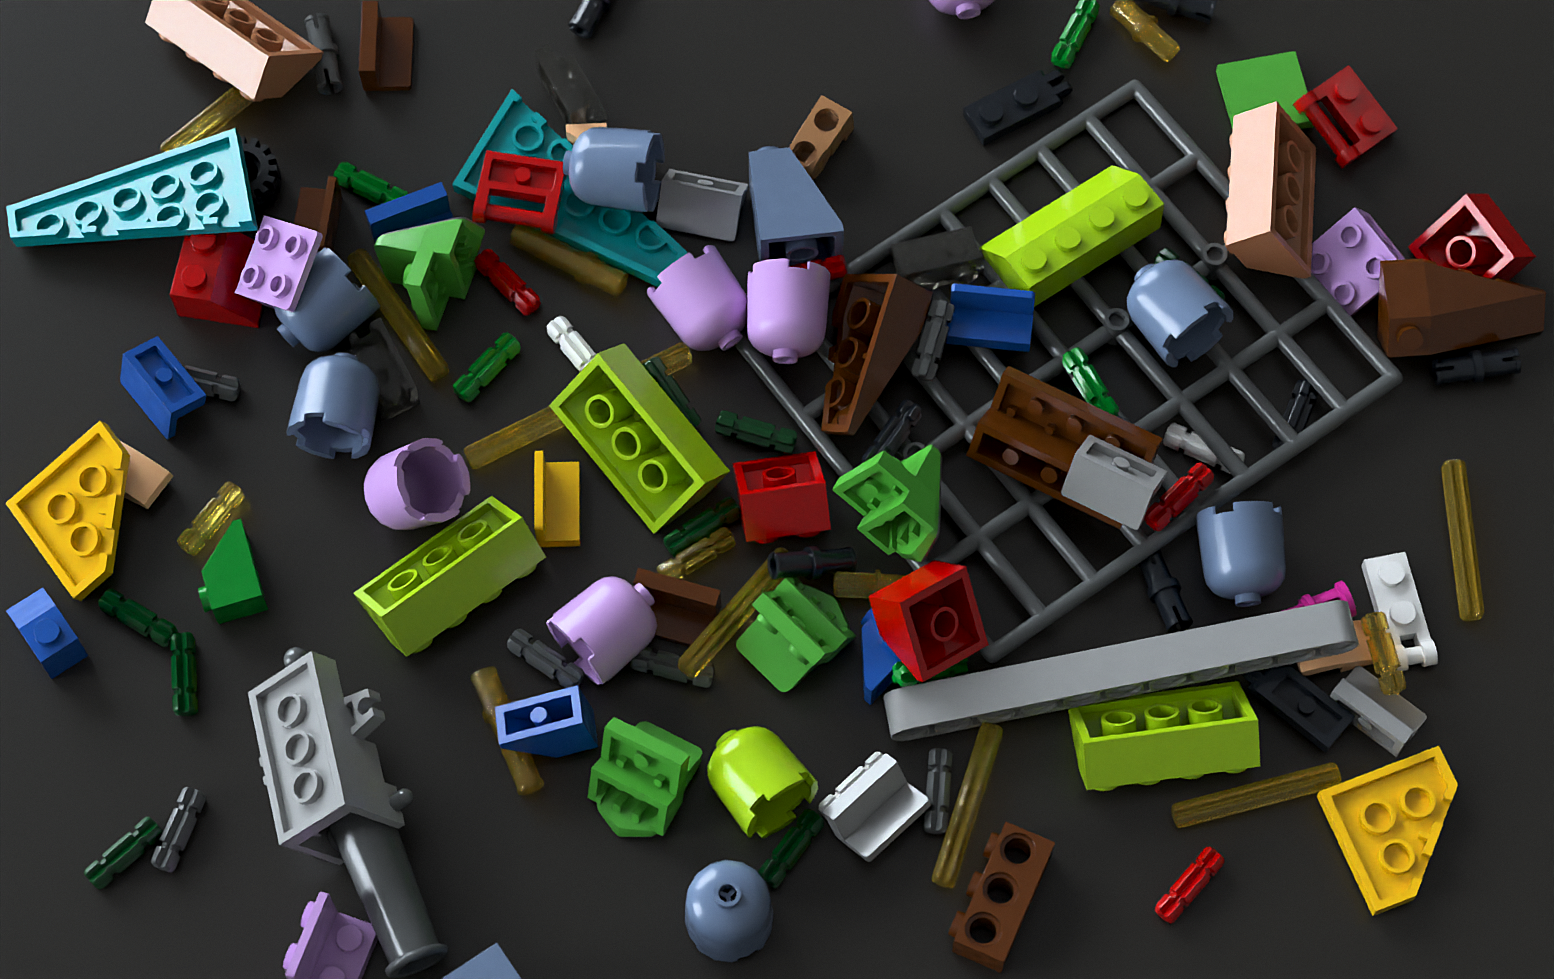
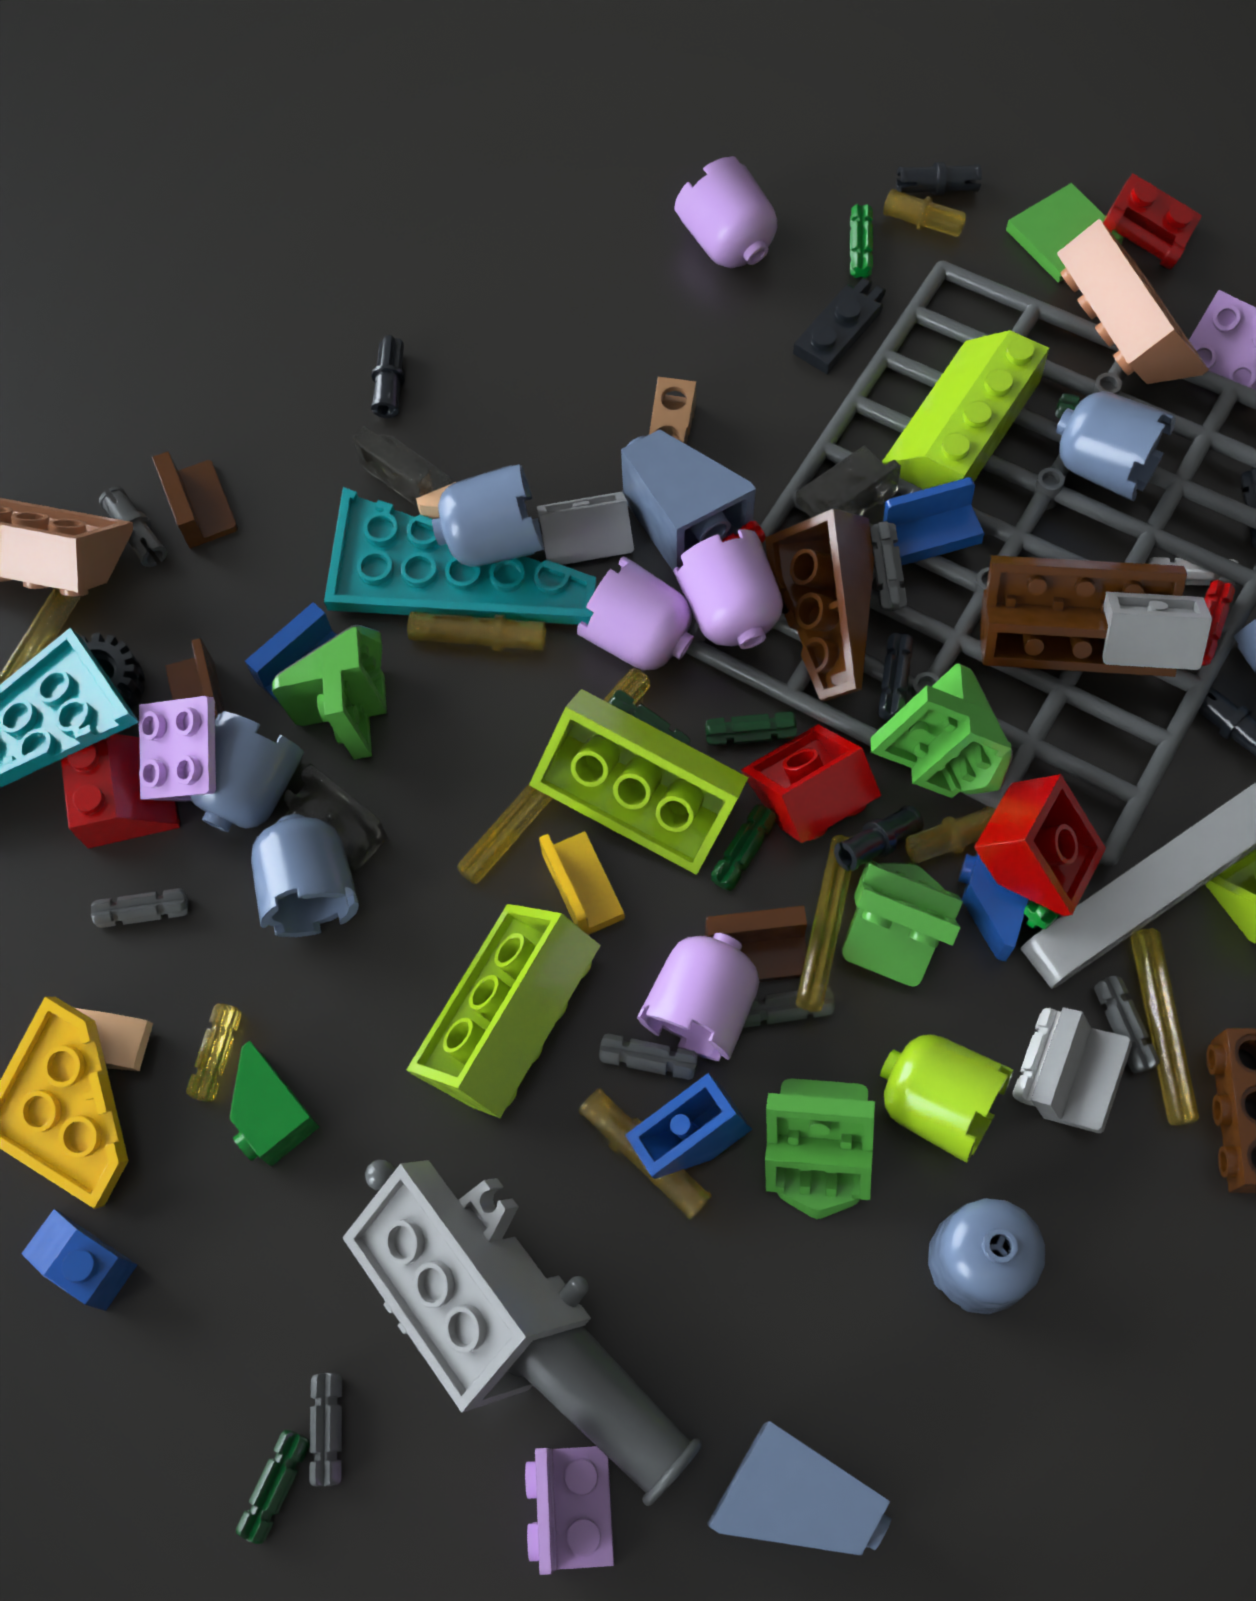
camera: 20 degrees left, 0 degrees up
(137, 617) = (177, 1198): dark green axle -> none
(160, 384) = (97, 929): blue panel -> none
(184, 674) = (256, 1242): dark green axle -> none
(367, 184) = (234, 637): green axle -> none
(398, 315) = (328, 757): clear yellow axle -> none
(416, 485) = (430, 925): lavender cylinder -> none
(486, 367) = (442, 772): green axle -> none
(507, 282) = (424, 678): red axle -> none
(519, 179) = (398, 568): red plate -> none
(571, 342) = (521, 715): white axle -> none
(698, 554) = (754, 877): clear yellow axle -> none
(791, 847) = (1008, 1152): dark green axle -> none
(1088, 381) = (1054, 543): green axle -> none

